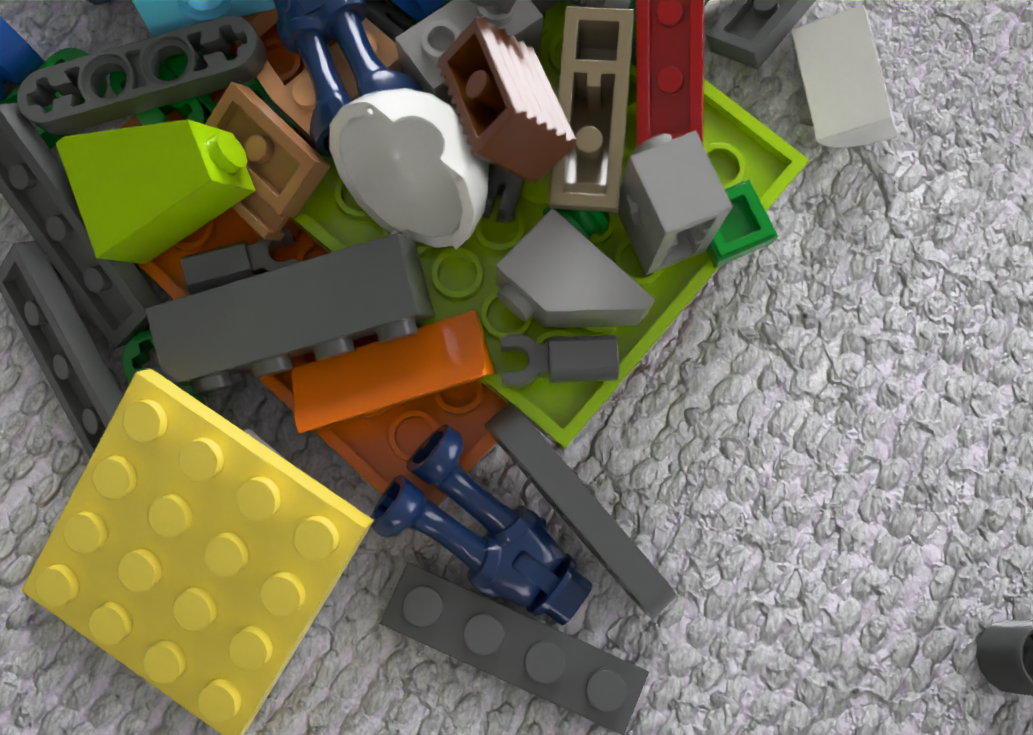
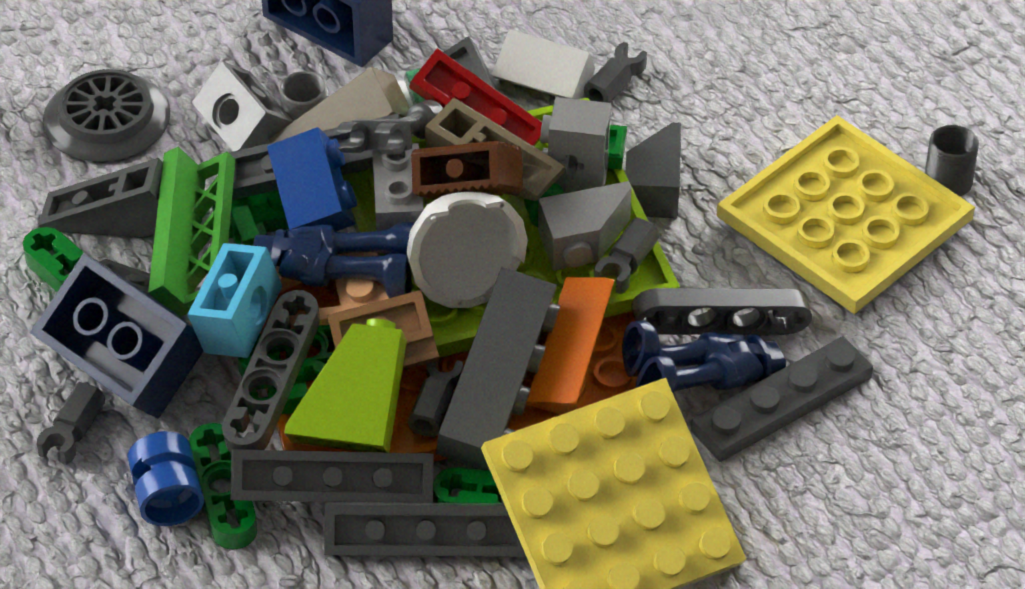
camera: 55 degrees left, 30 degrees down
(760, 301) = (655, 172): none -> dark grey slope
(859, 567) = (845, 213): none -> light yellow plate
(898, 164) = (615, 75): none -> dark grey bar

